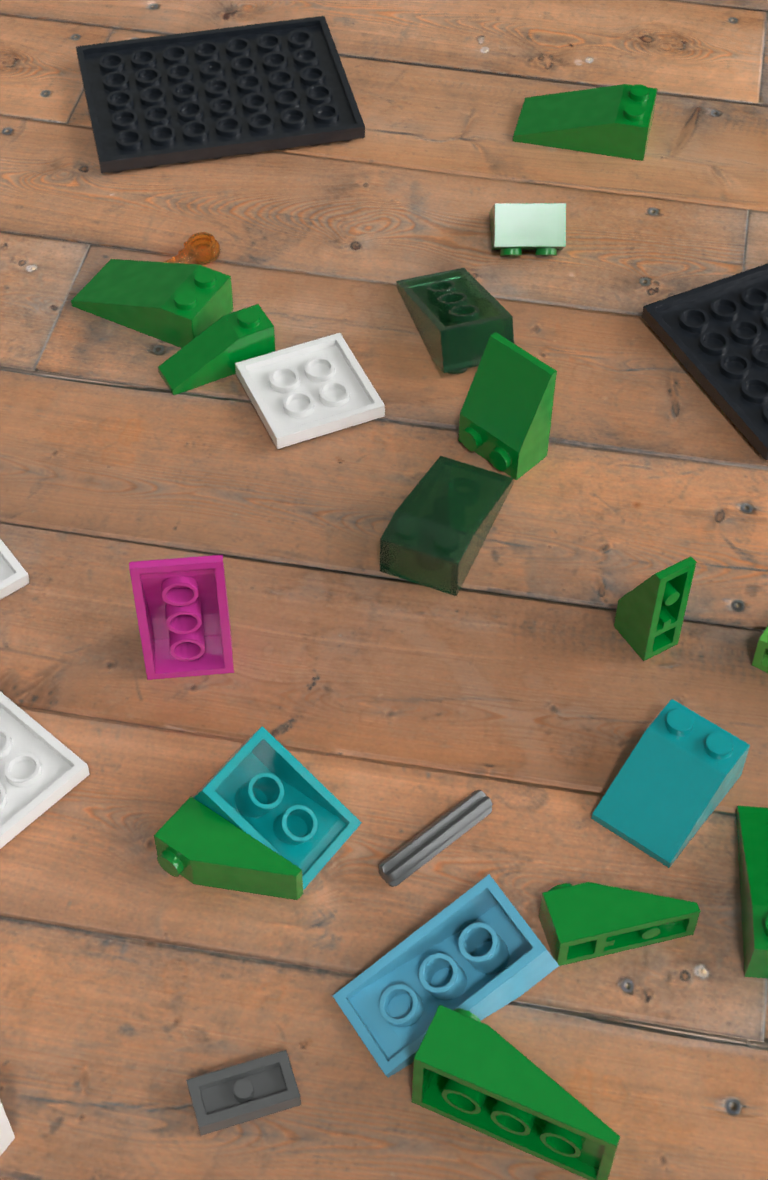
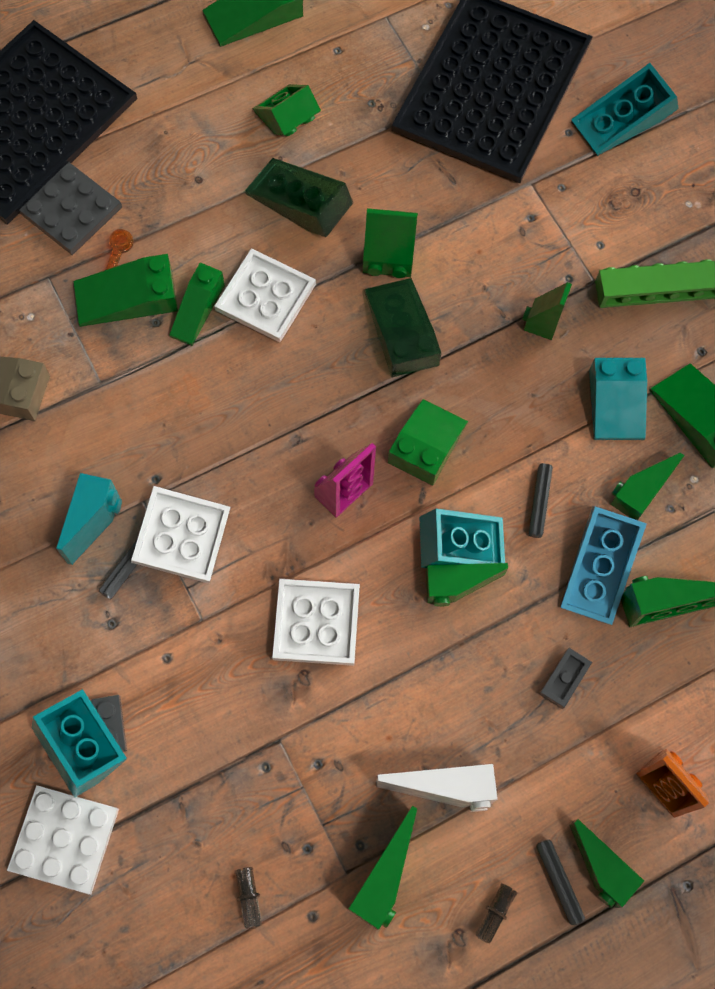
camera: 40 degrees left, 20 degrees up
(183, 194) = (70, 208): none -> dark grey plate
(346, 663) = (426, 442): none -> green slope

